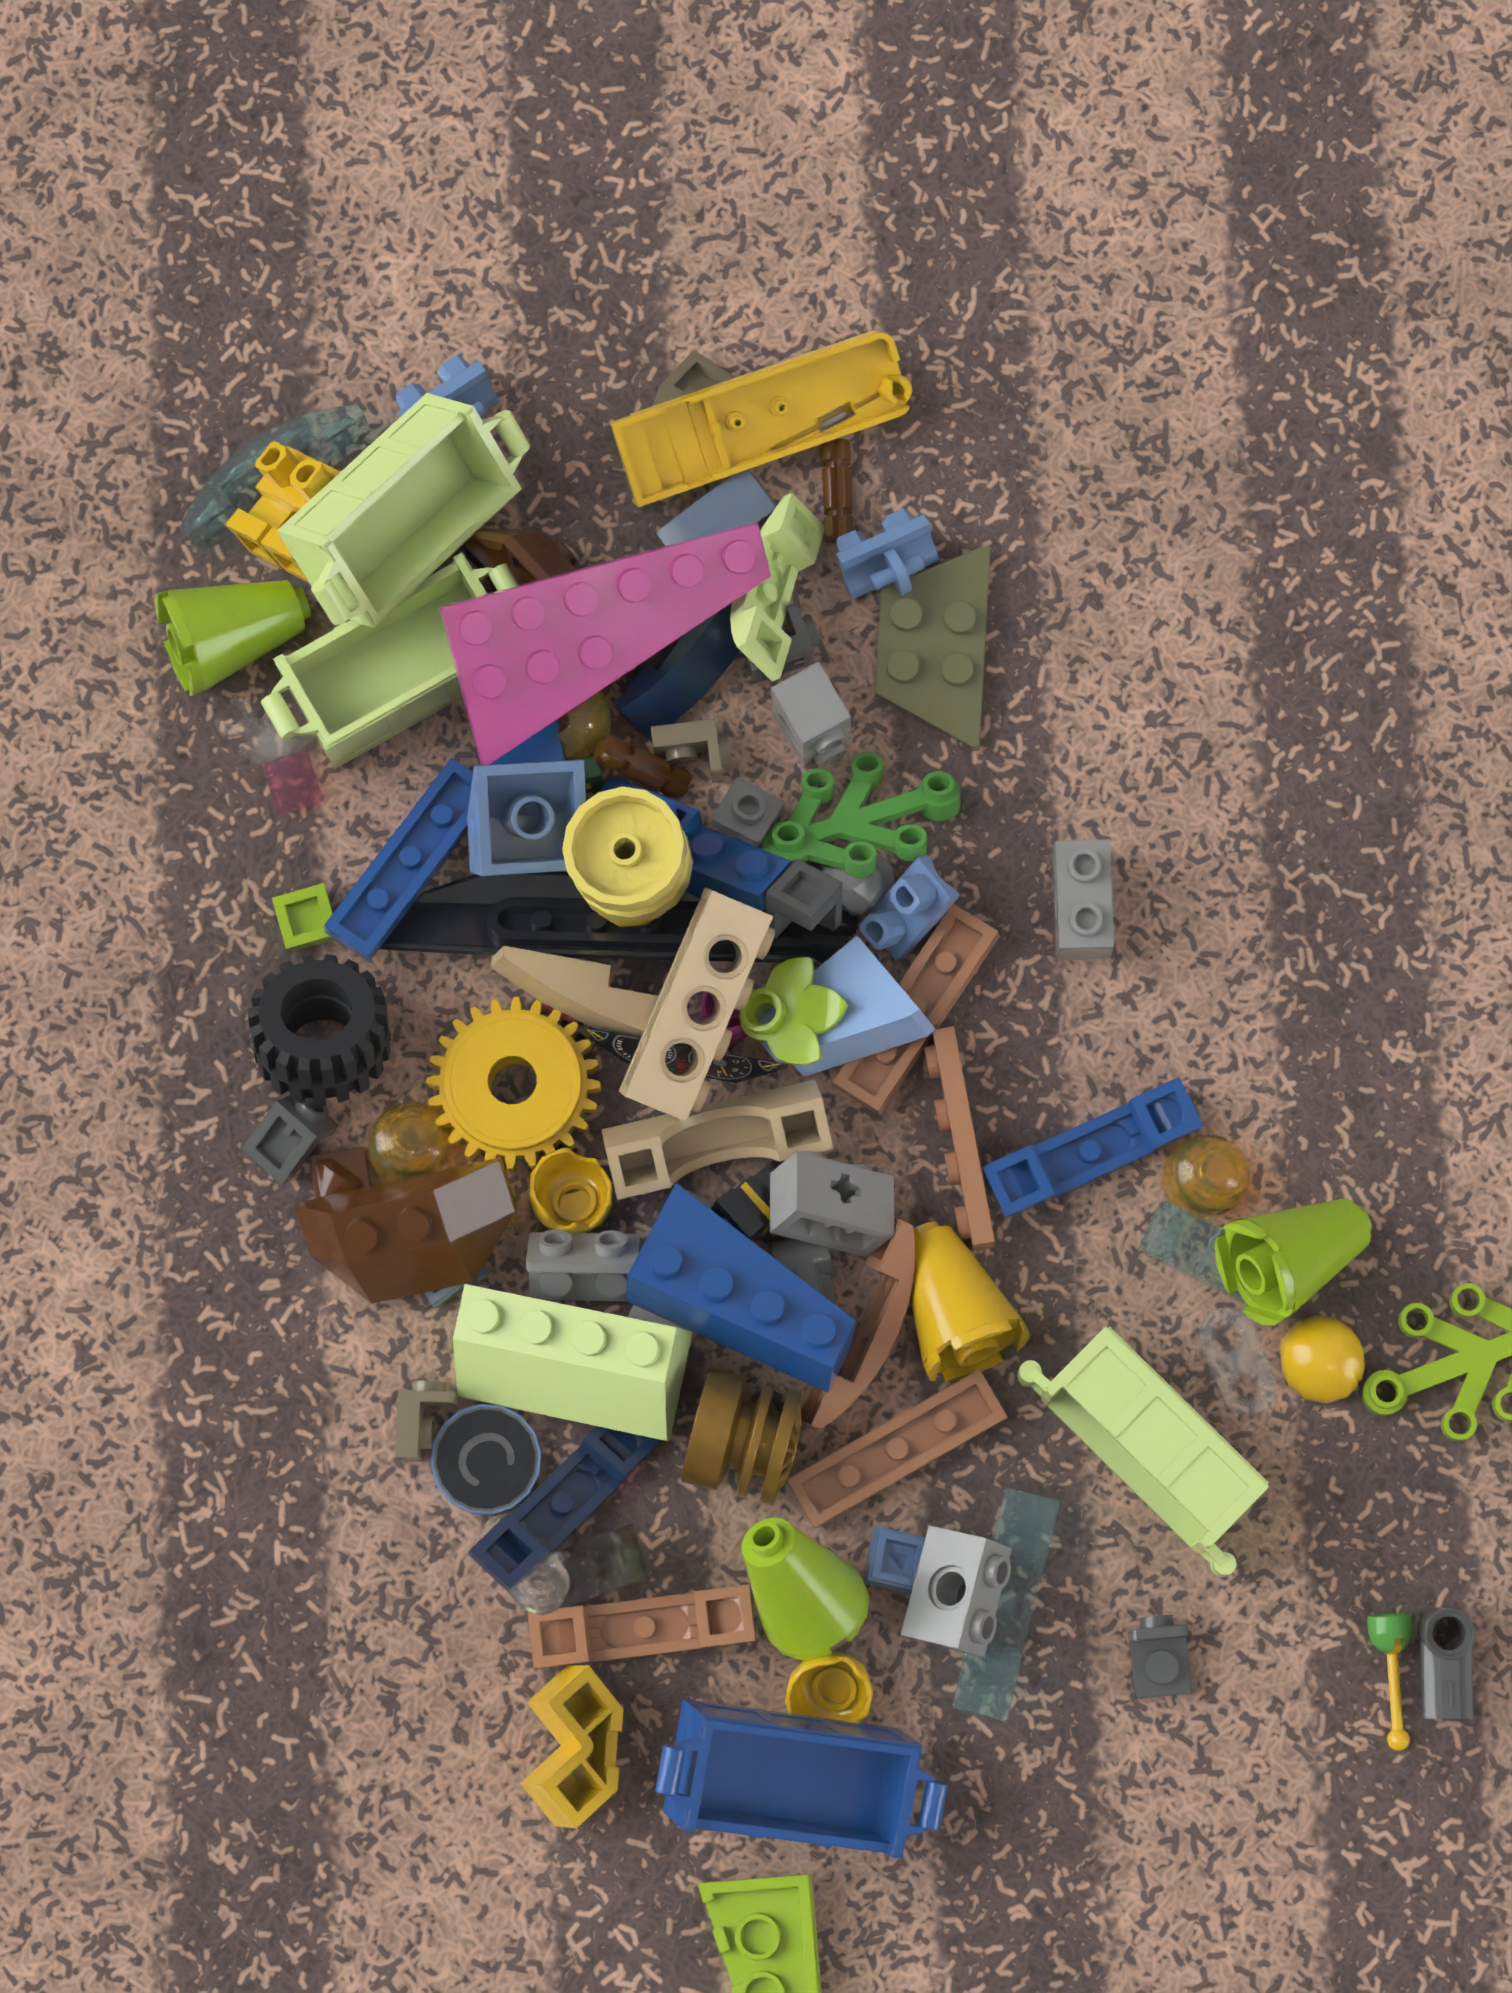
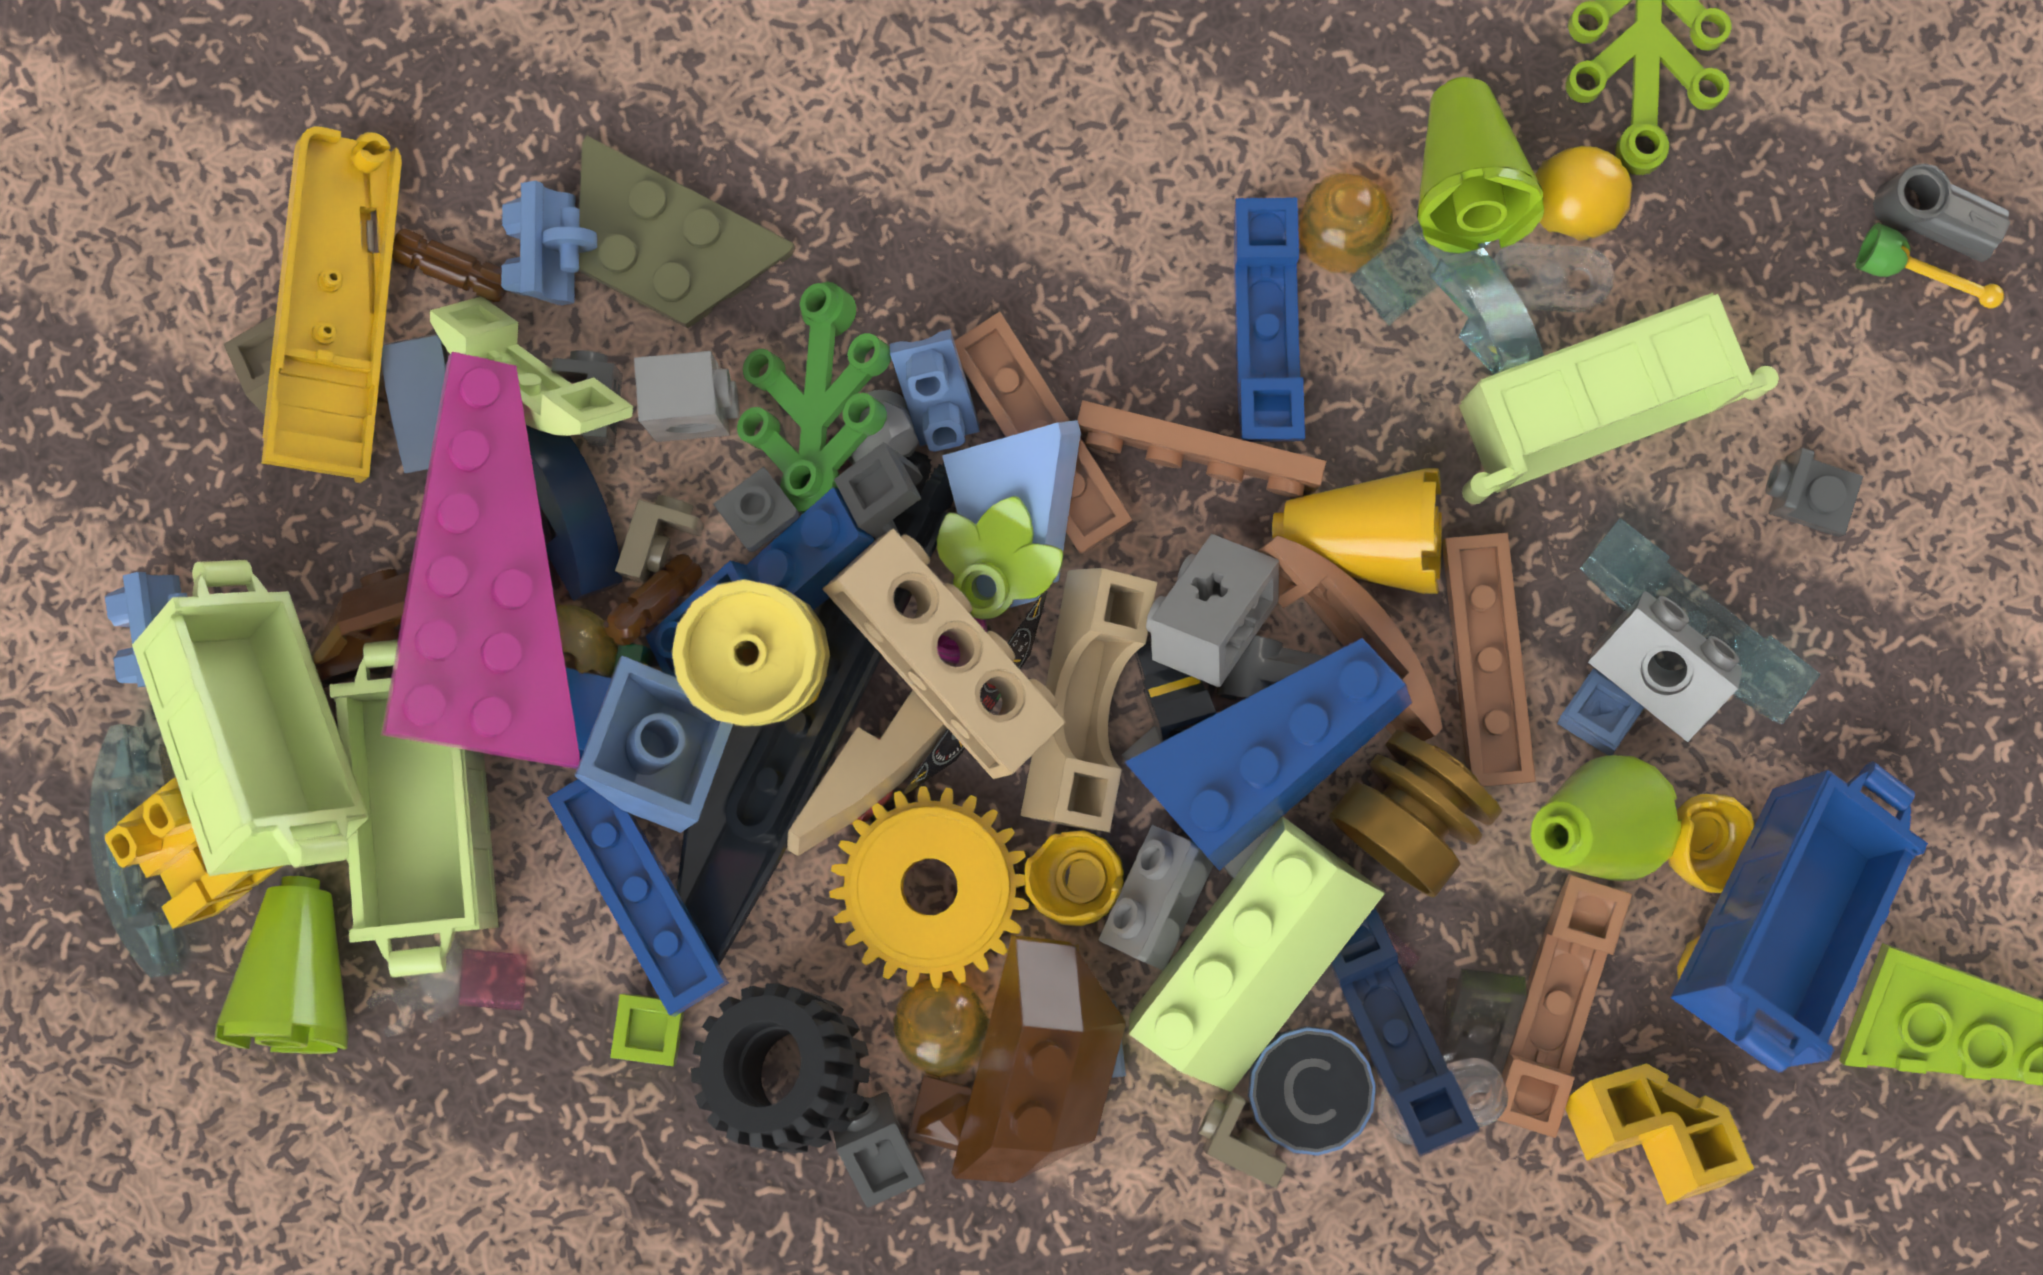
camera: 70 degrees left, 5 degrees up
(1083, 899) = (1006, 210): light grey brick -> none
(1175, 1327) = (1497, 321): none -> clear light blue slope

